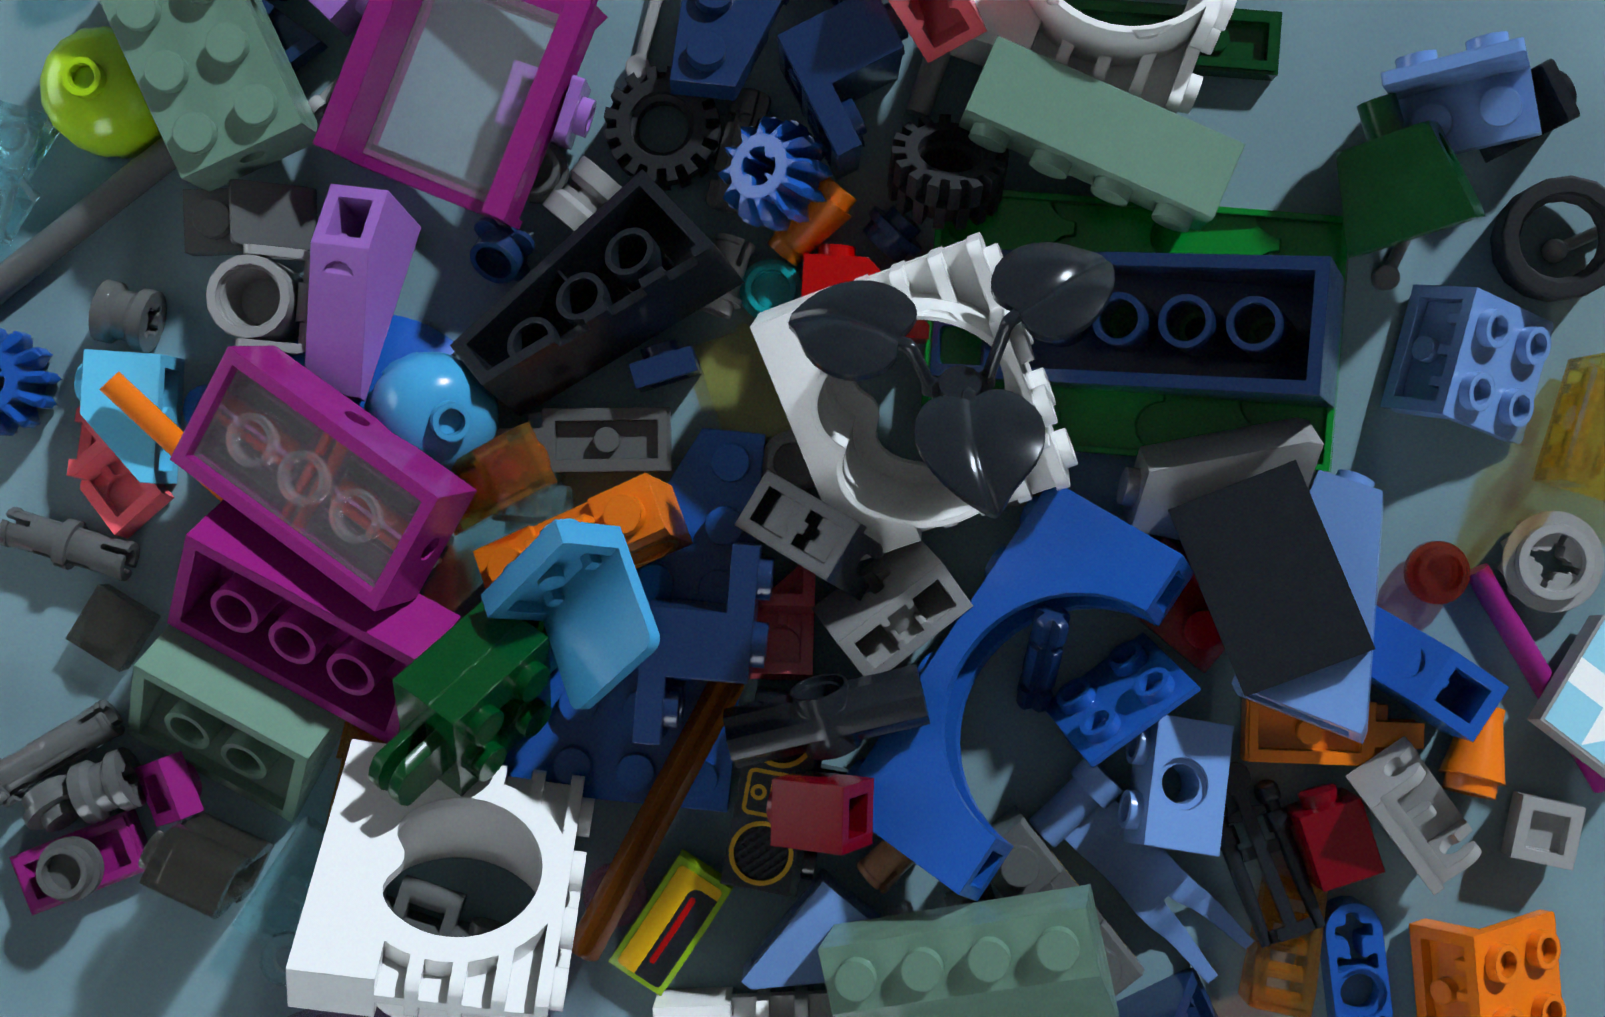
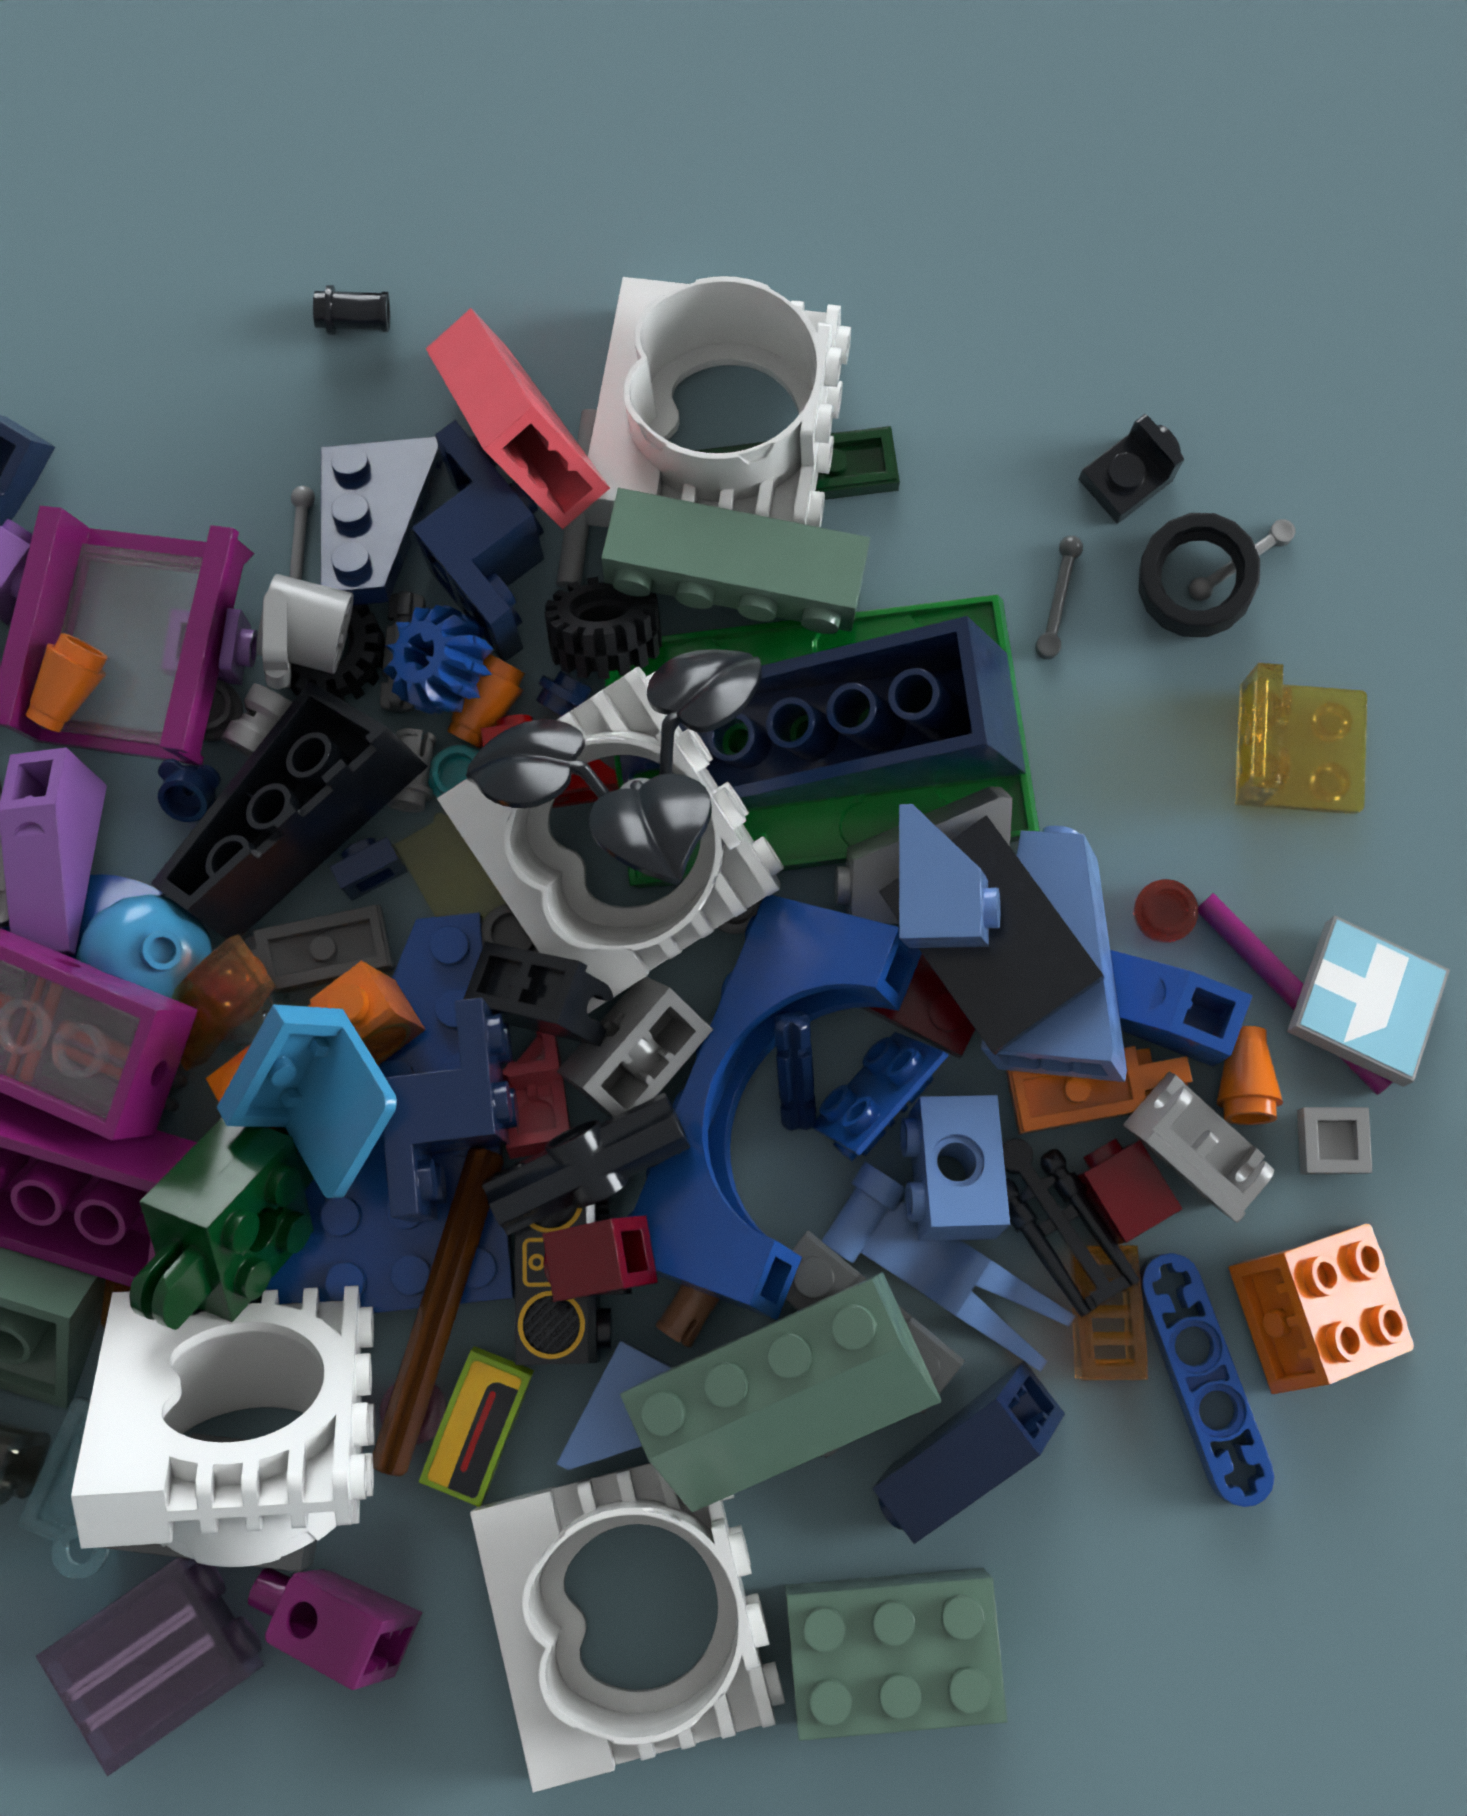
camera: 10 degrees left, 10 degrees down
(397, 115) = (65, 681): none -> orange cone
(644, 115) = (301, 627): none -> light grey piece
(1237, 529) = (940, 889): none -> medium blue slope
(1400, 181) = (1033, 551): dark green torso -> none
(1468, 360) = (1145, 703): medium blue bracket -> none
(1474, 95) = (1070, 462): medium blue bracket -> none
(1576, 548) = (1295, 861): light grey gear -> none

